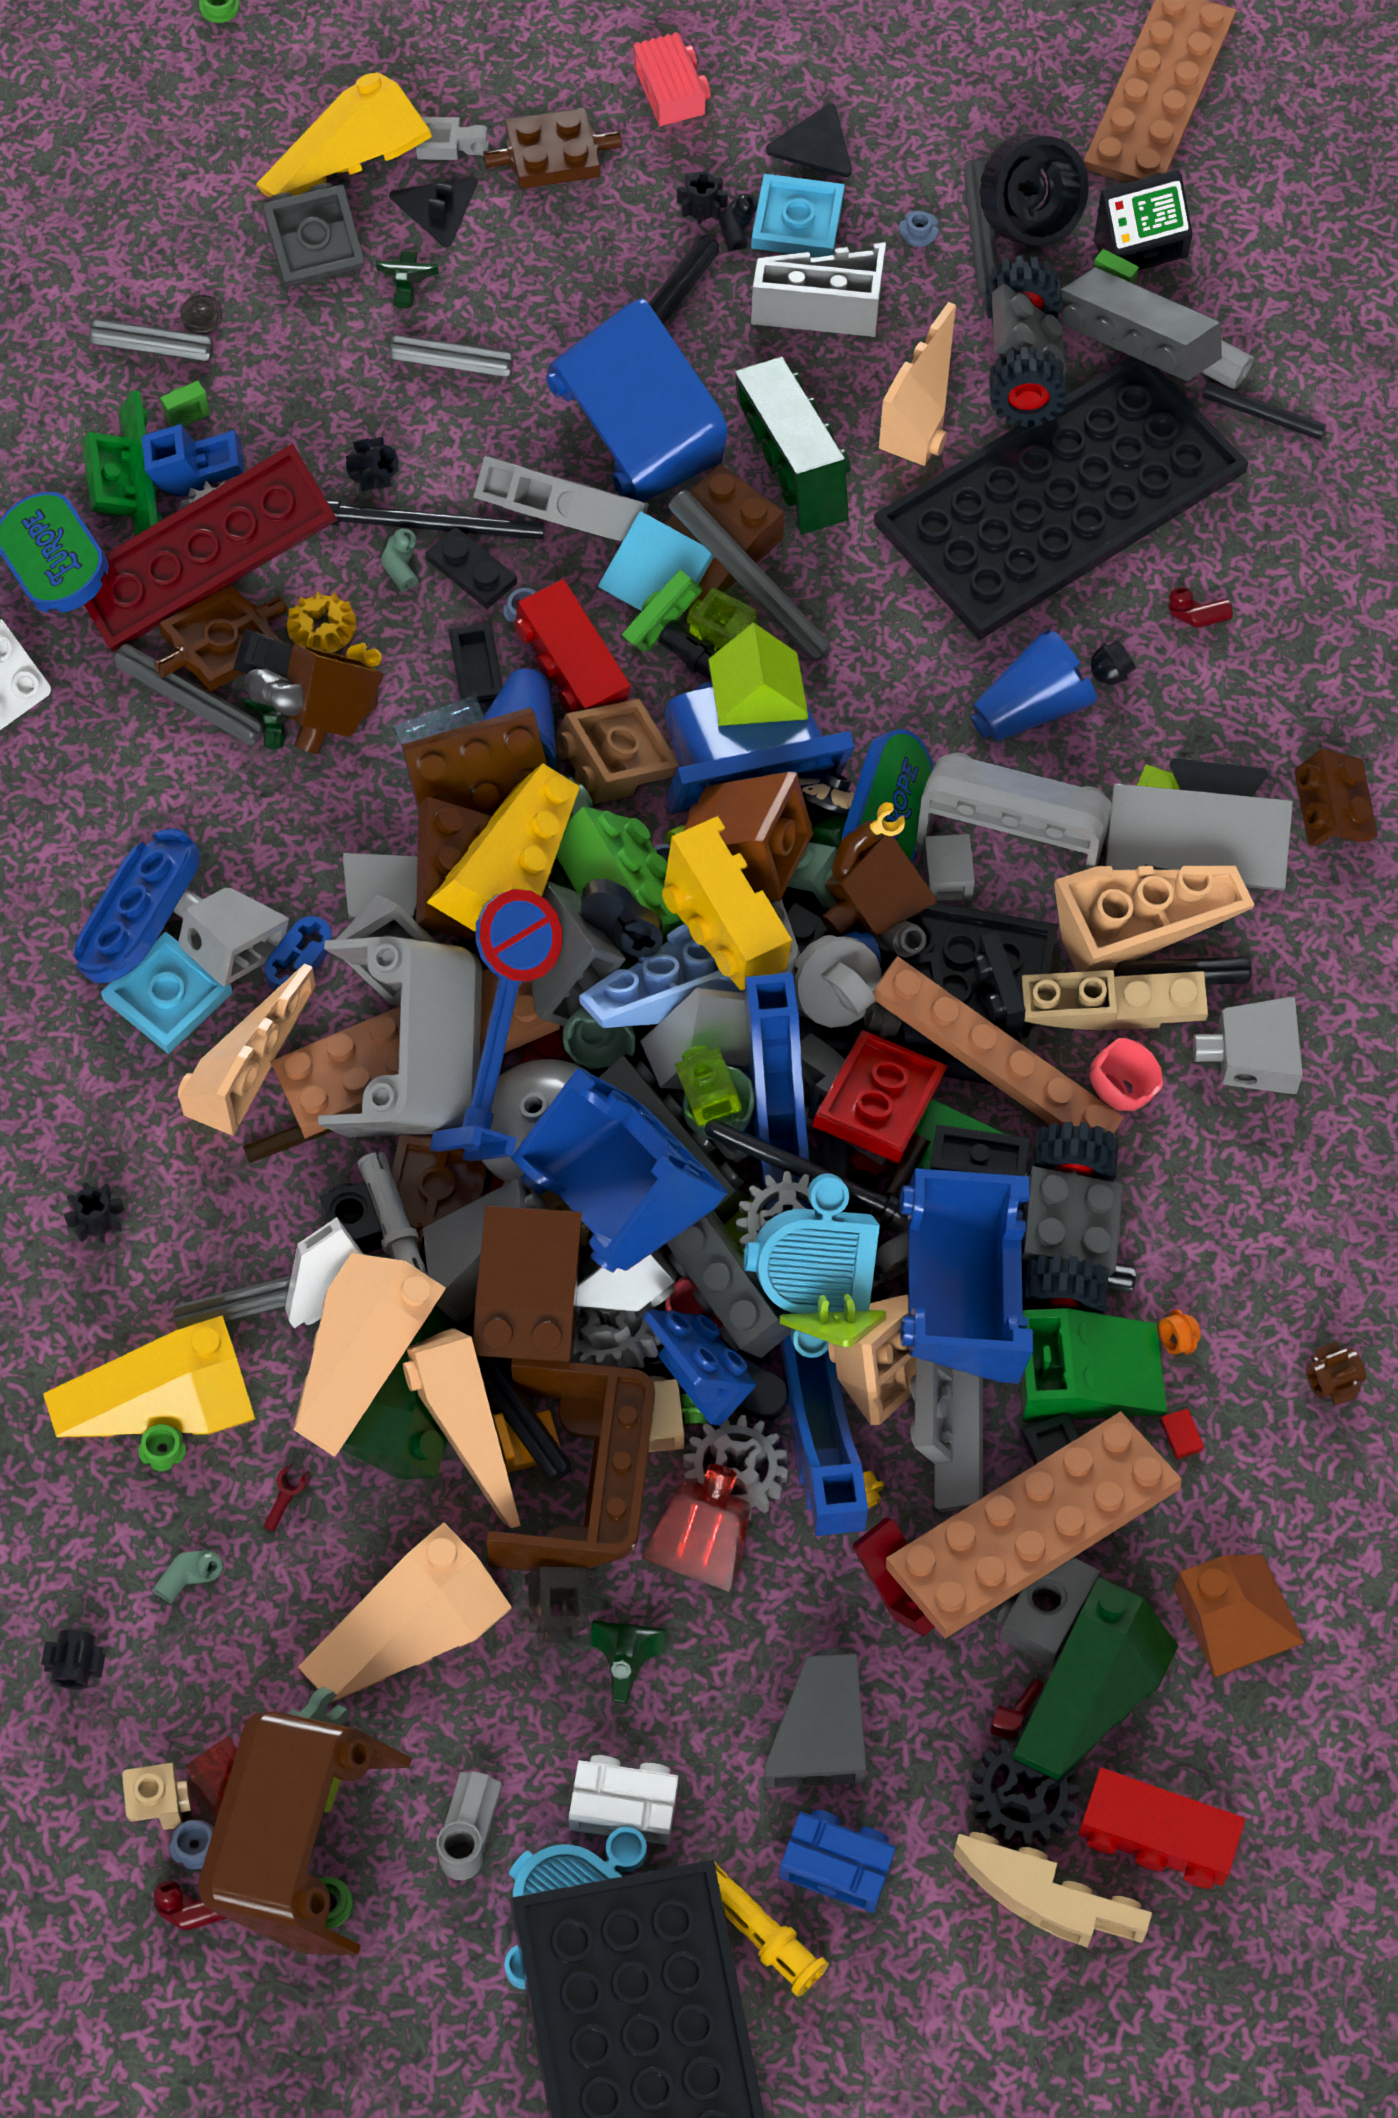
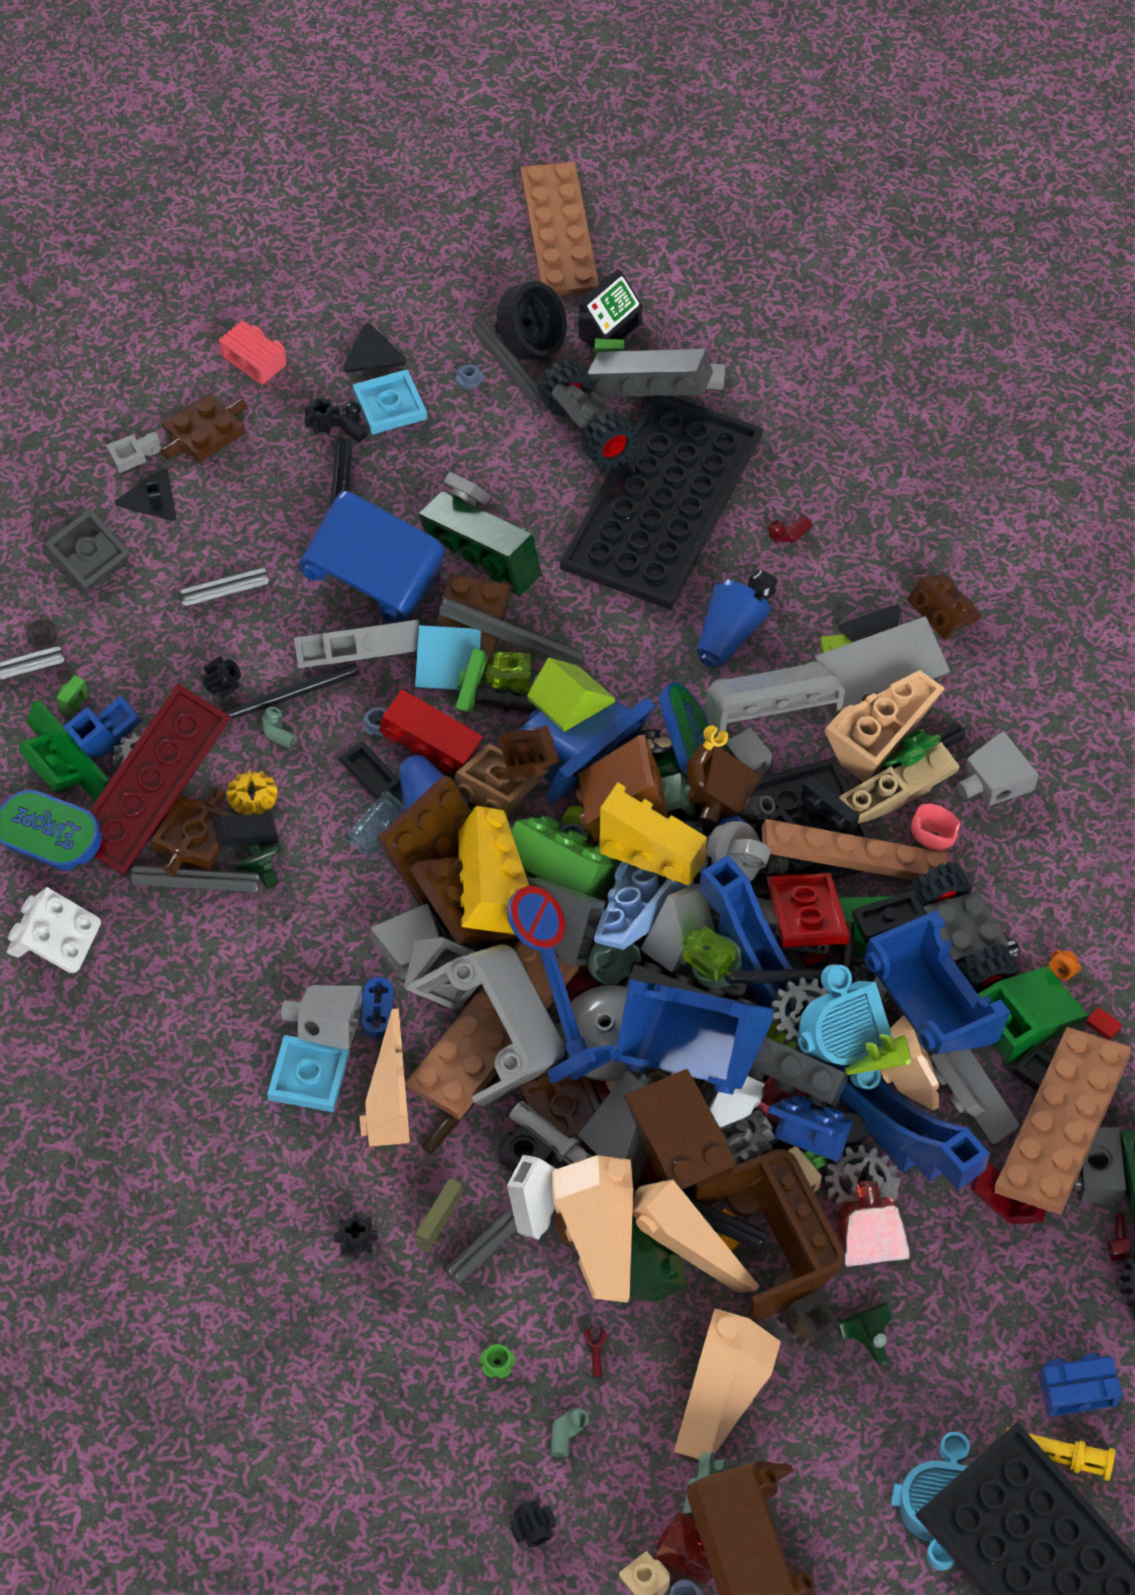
camera: 30 degrees left, 5 degrees down
(136, 906) = (255, 1028): blue tile -> none
(175, 1381) = (484, 1312): yellow wedge -> none
(204, 1238) = (439, 1215): none -> olive tile
(321, 691) = (289, 832): reddish brown torso -> none
(358, 126) = (70, 471): yellow wedge -> none
(406, 274) = (161, 547): dark green piece -> none
(468, 1823) = (846, 1487): light grey piece -> none
(471, 567) = (326, 712): black plate -> none
(620, 1797) = (925, 1422): white brick -> none
(621, 918) = (601, 879): black piece -> none
(662, 731) = (527, 752): none -> reddish brown bracket
(813, 368) = (466, 490): none -> light grey plate
(820, 292) = (439, 441): light grey wedge -> none
(821, 1727) = (1017, 1309): dark grey slope -> none
(917, 397) = (545, 481): light nougat wedge -> none
(1165, 959) = (914, 748): none -> green plate
(1264, 411) = (749, 394): black bar -> none

